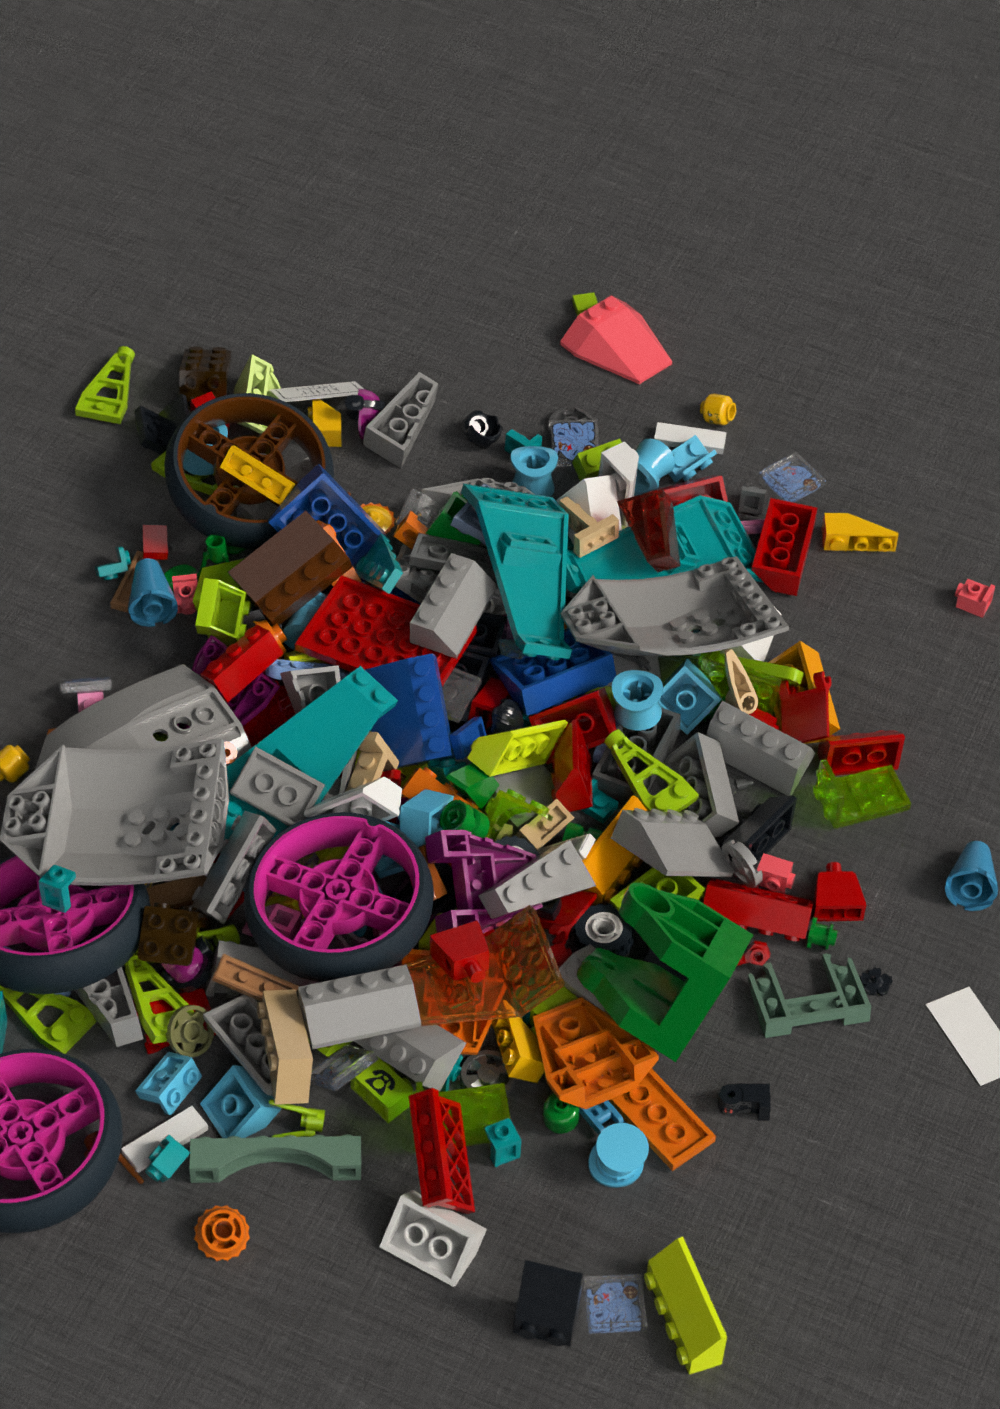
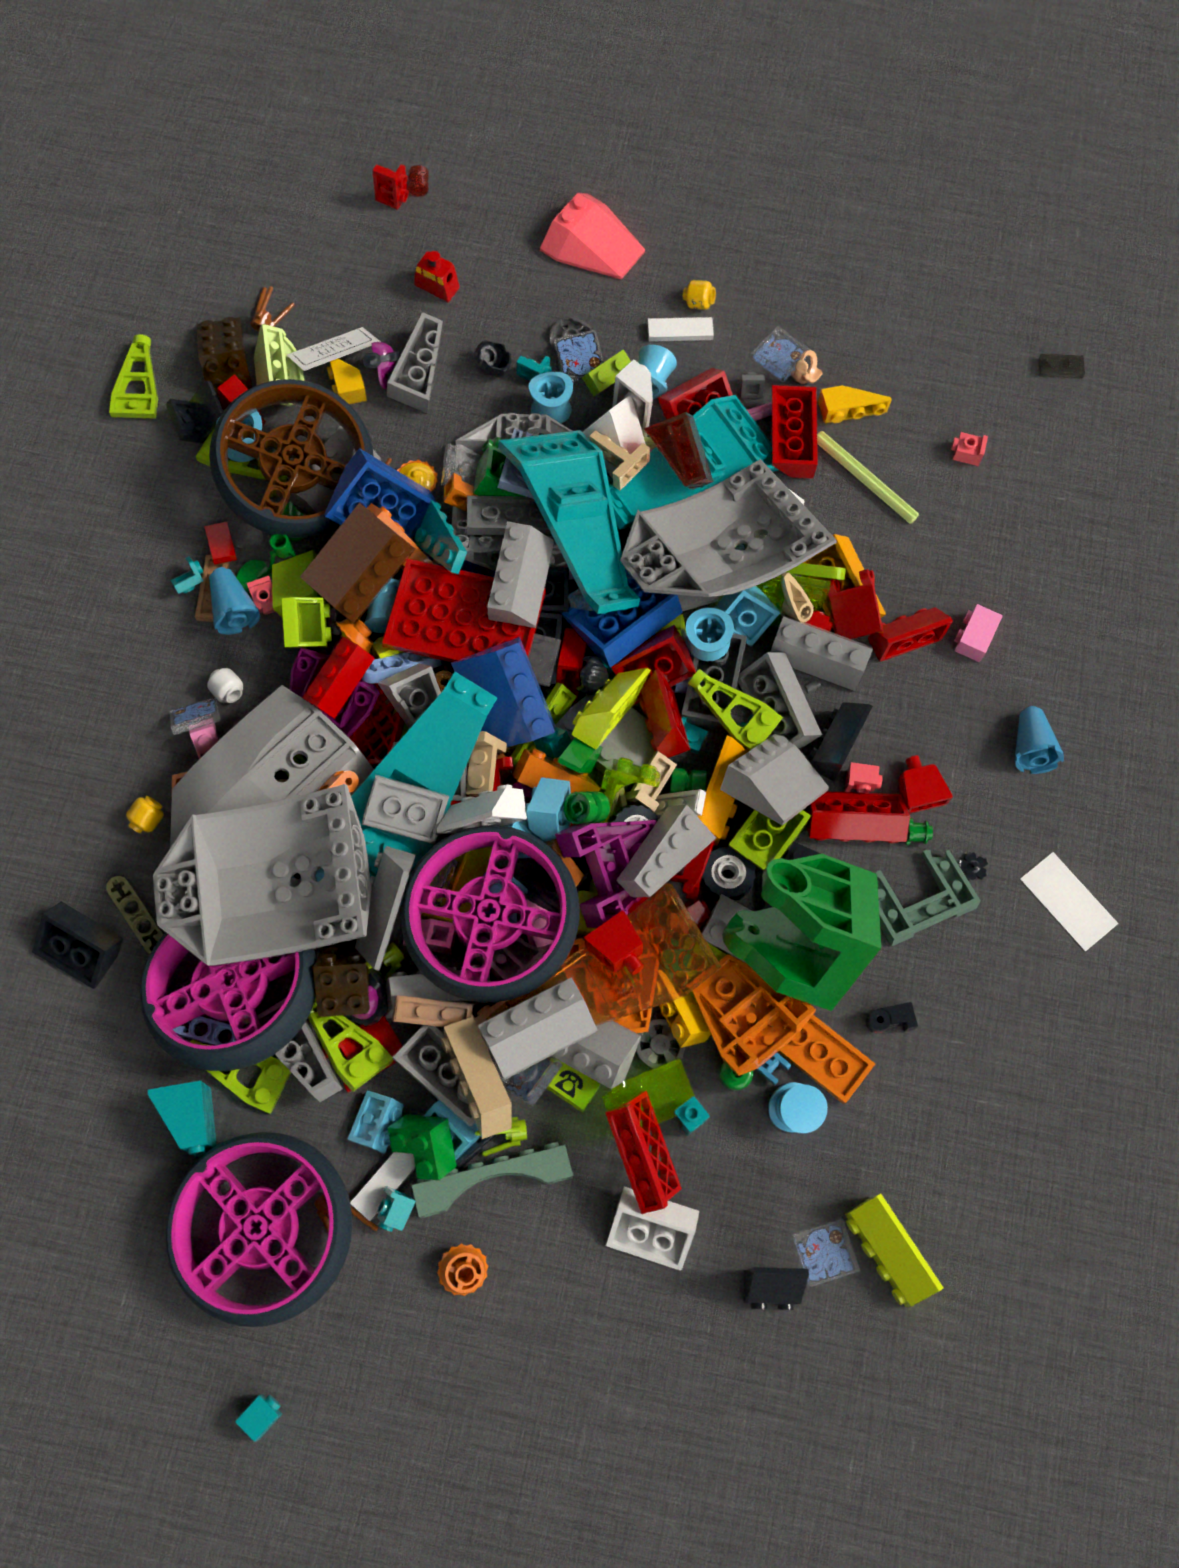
camera: 15 degrees left, 20 degrees up
(55, 889) = (224, 969): teal bracket -> none
(124, 666) = (225, 685): none -> white head
(189, 1031) = (381, 1070): olive wheel -> none
(219, 1103) = (429, 1143): none -> green brick
(256, 351) = (262, 316): none -> dark orange plant
(257, 475) = (303, 470): yellow plate -> none
(268, 1129) = (473, 1151): none -> black piece
(418, 259) = (390, 186): none -> red bracket
(444, 346) = (436, 276): none -> red torso
(448, 261) = (418, 181): none -> clear red wheel
(465, 736) = (563, 705): blue tile -> none
(583, 302) = (552, 202): lime tile -> none
(688, 458) = (687, 352): medium azure bracket -> none
(742, 863) = (837, 781): light grey piece -> none
(756, 954) = (868, 861): red piece -> none
(806, 494) = (800, 373): none -> light nougat piece
(855, 605) = (866, 477): none -> yellowish green axle
(859, 795) = (918, 678): clear neon green bracket -> none
(937, 765) = (978, 632): none -> bright pink brick

